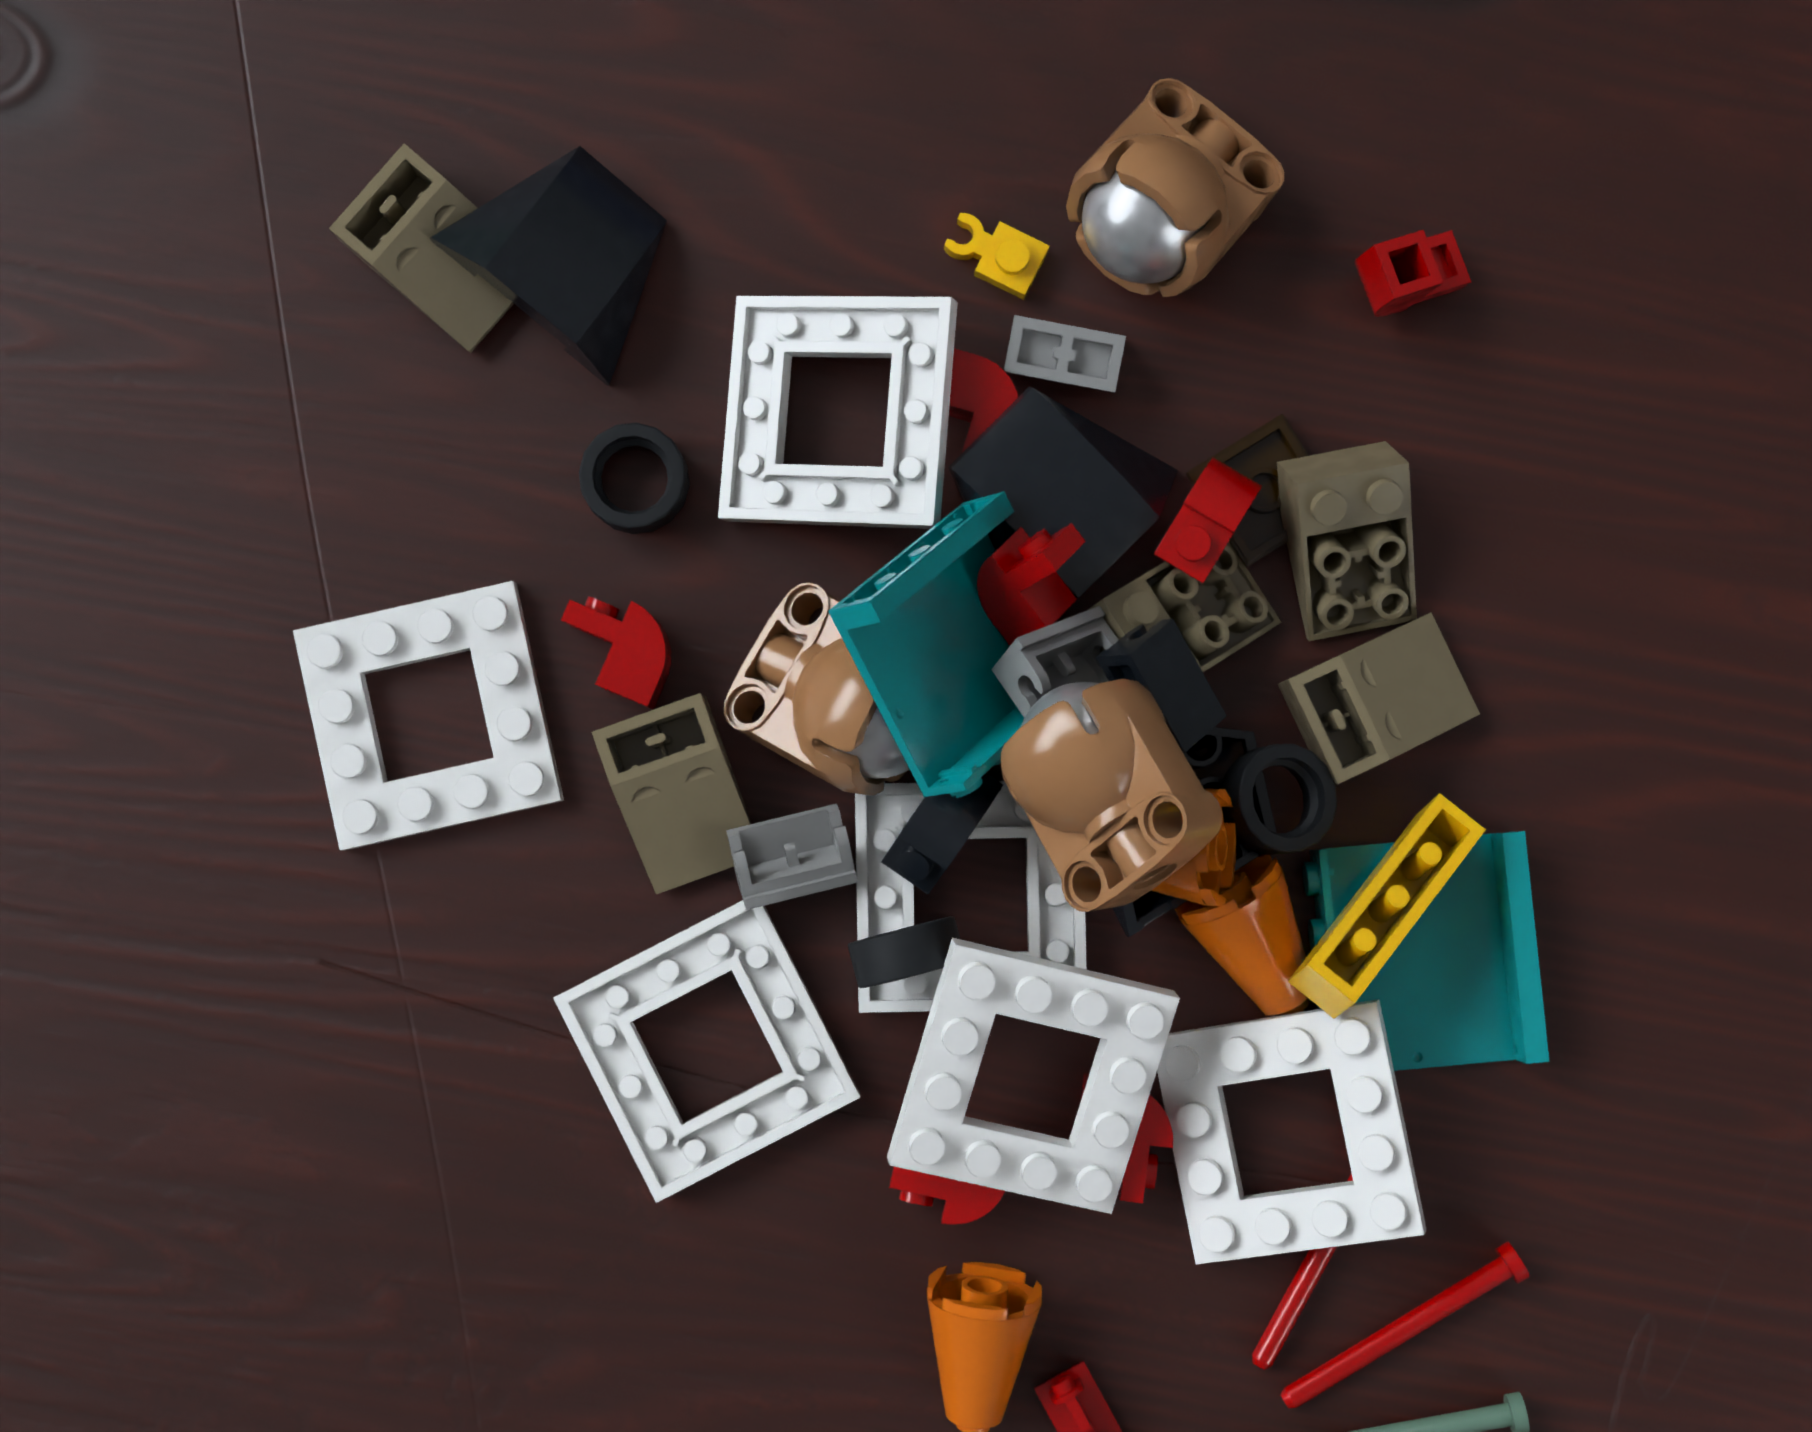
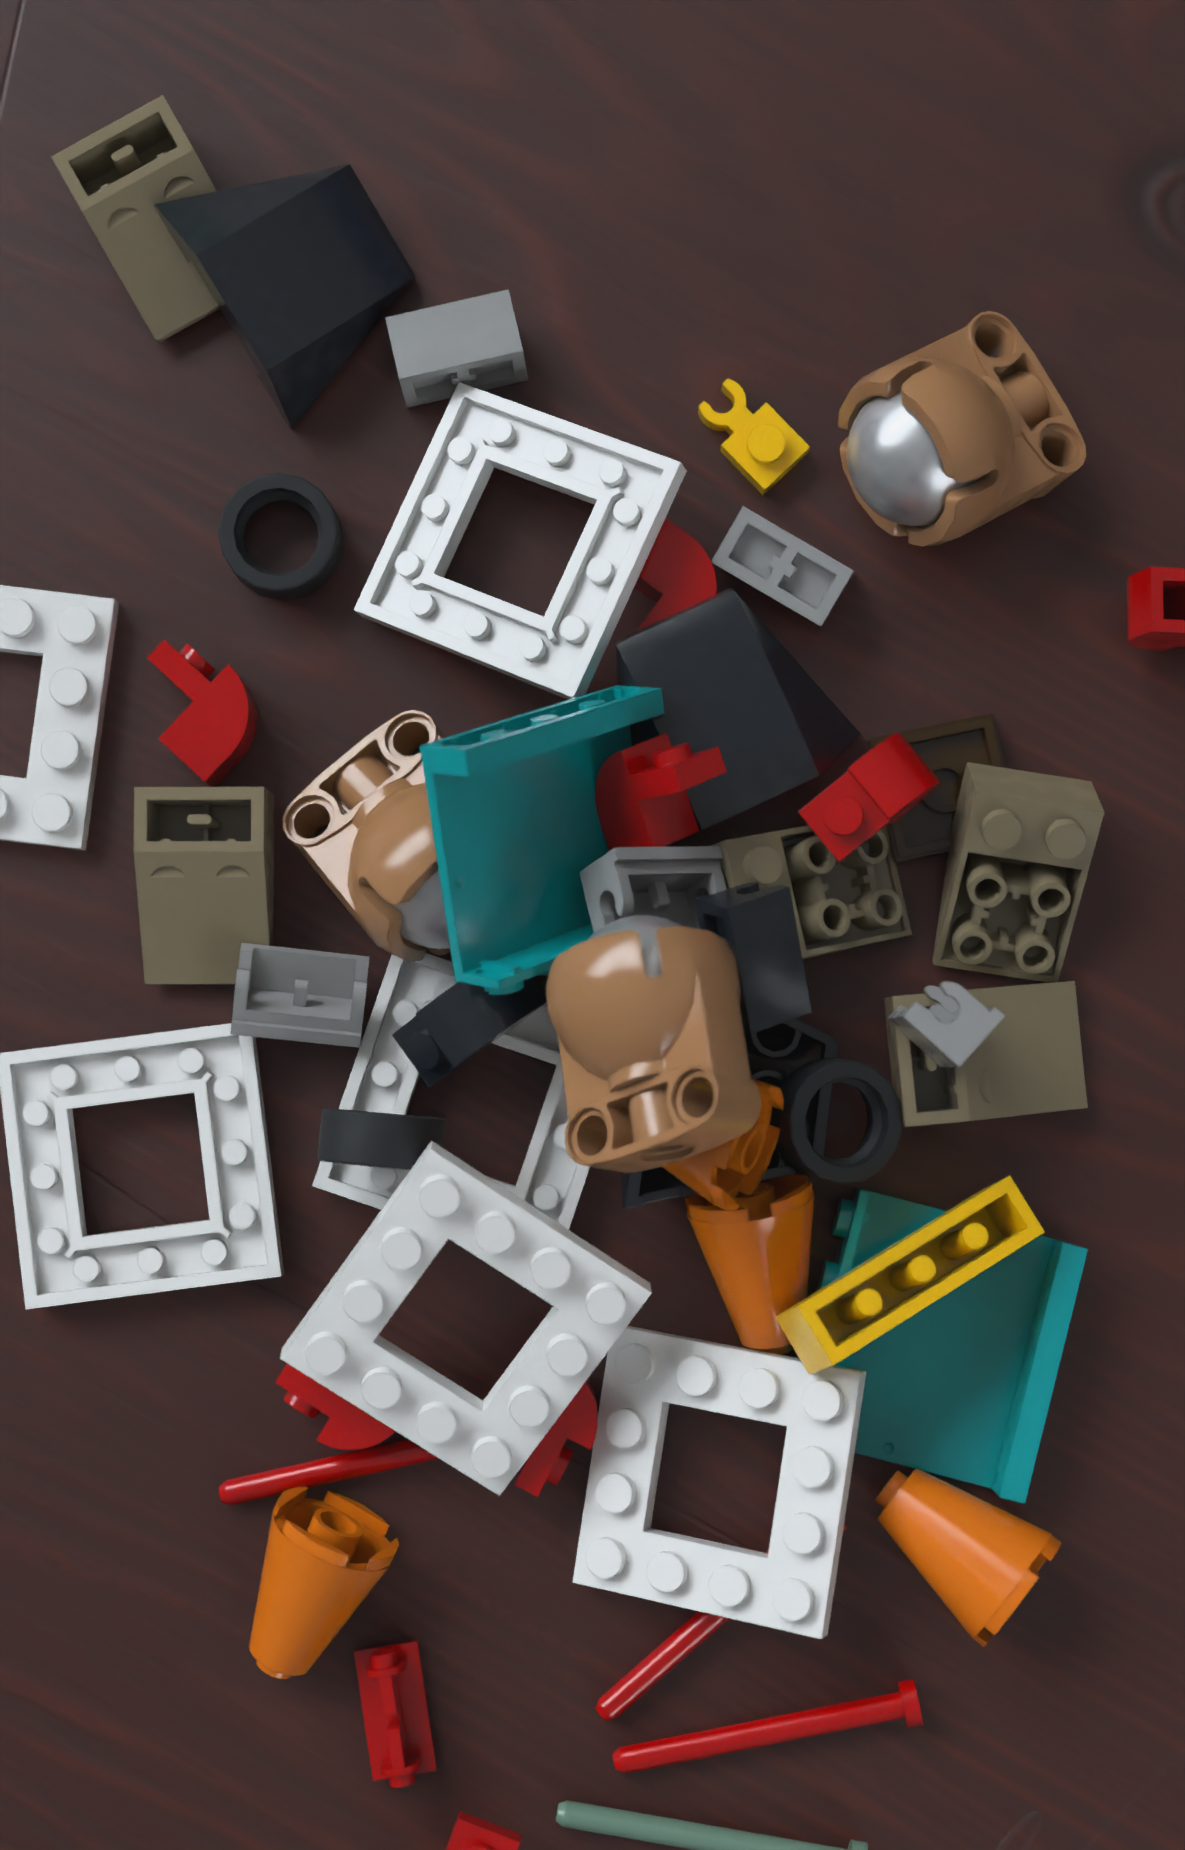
camera: 20 degrees right, 0 degrees up
(725, 263) = (454, 343): none -> light grey hinge
(954, 1247) = (323, 1471): none -> red bar
(1347, 691) = (949, 1028): none -> light grey hinge
(1513, 1117) = (965, 1548): none -> orange cone

